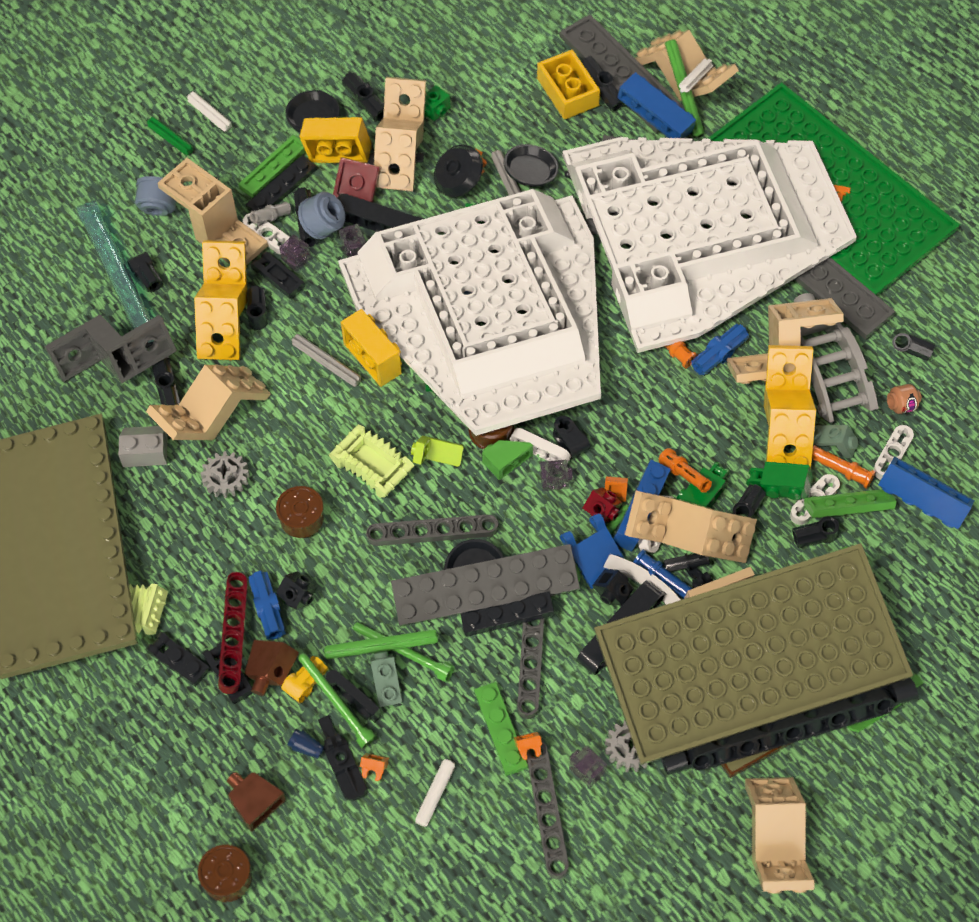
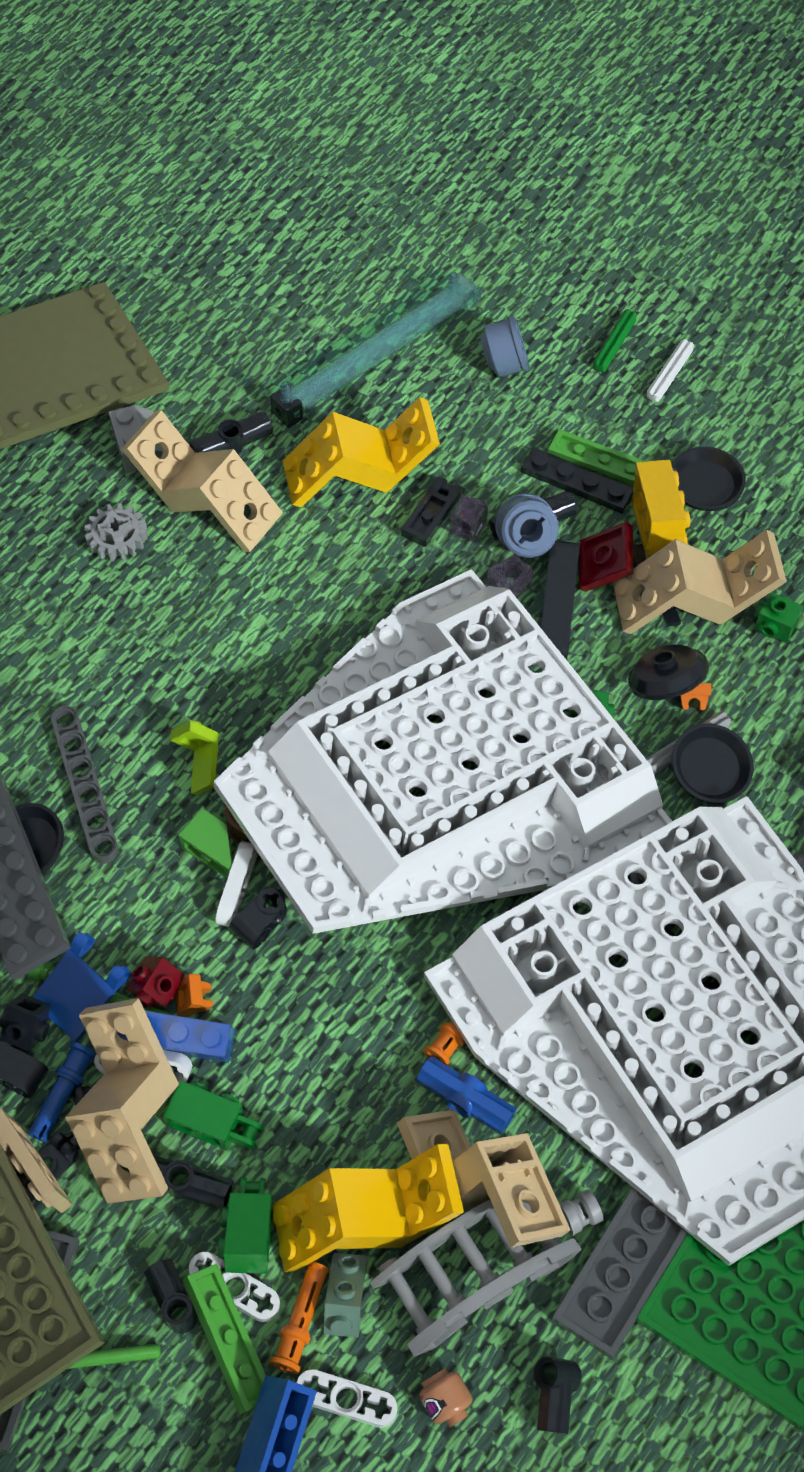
camera: 75 degrees right, 0 degrees up
(101, 342) = (253, 361): dark grey bracket -> none
(144, 269) = (397, 367): black piece -> none
(210, 208) = (483, 405): tan bracket -> none
(256, 308) = (363, 501): black piece -> none
(266, 226) = (495, 473): white beam -> none
(270, 212) = (523, 474): light grey pin -> none
(300, 511) = (70, 622): reddish brown wheel -> none
(326, 360) = (316, 599): light grey axle -> none
(364, 96) = (772, 518): black piece -> none
(371, 347) = (333, 633): yellow brick -> none
(372, 459) = (172, 685): yellowish green piece -> none
(550, 482) = (192, 900): brick -> none
(640, 575) = (65, 1027): white sticker -> none
(699, 481) = (237, 1072): orange pin -> none

